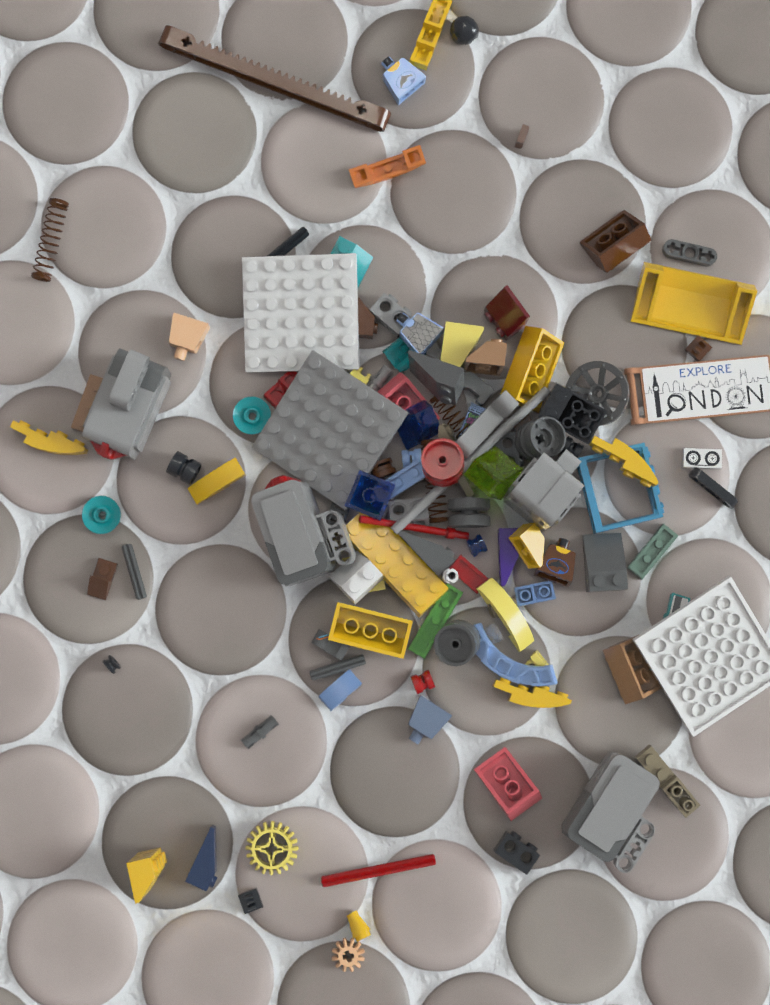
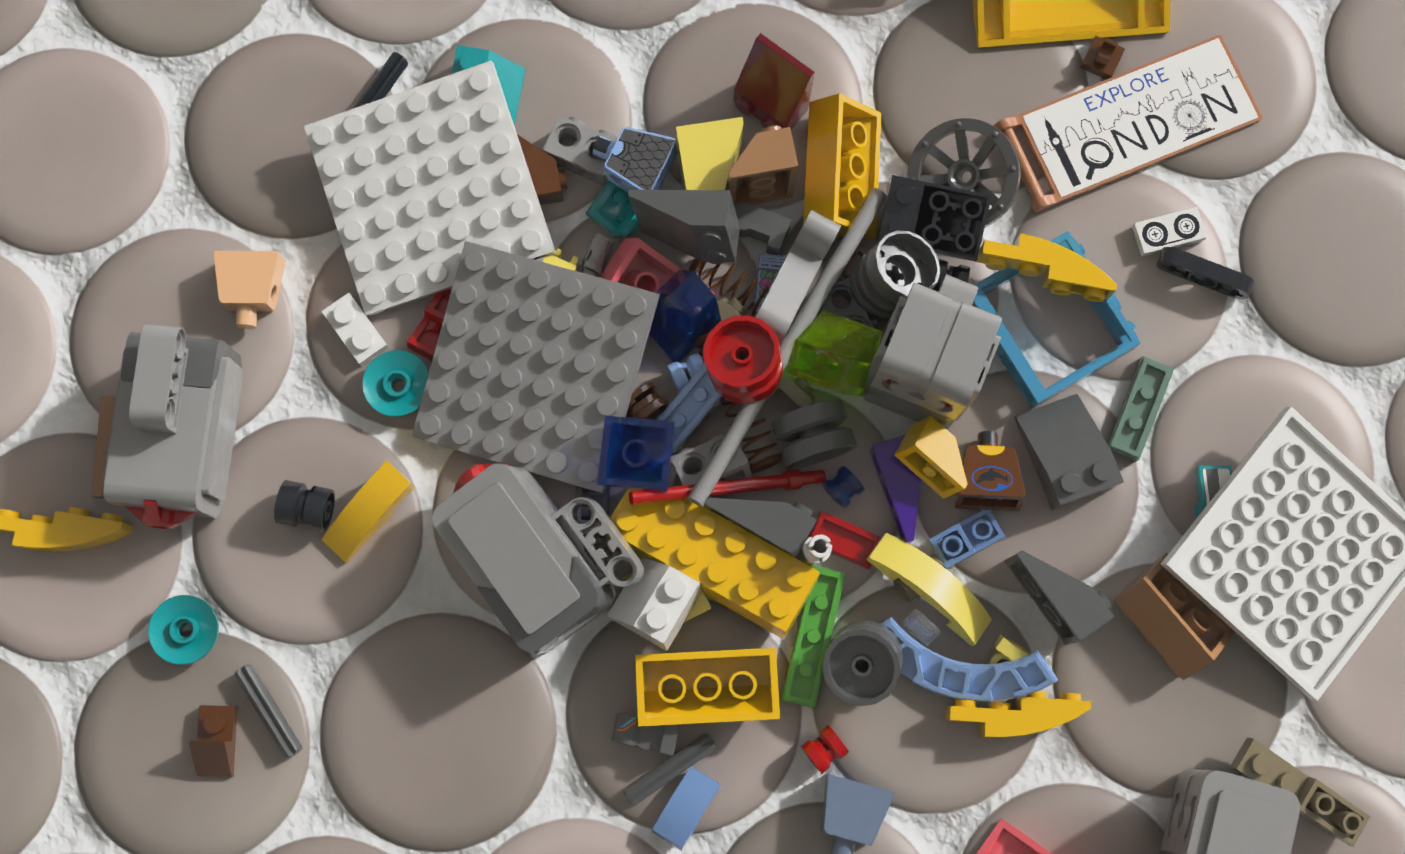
camera: 10 degrees left, 5 degrees down
(237, 377) = (355, 329): none -> white plate
(575, 644) = (1065, 602): none -> dark grey slope

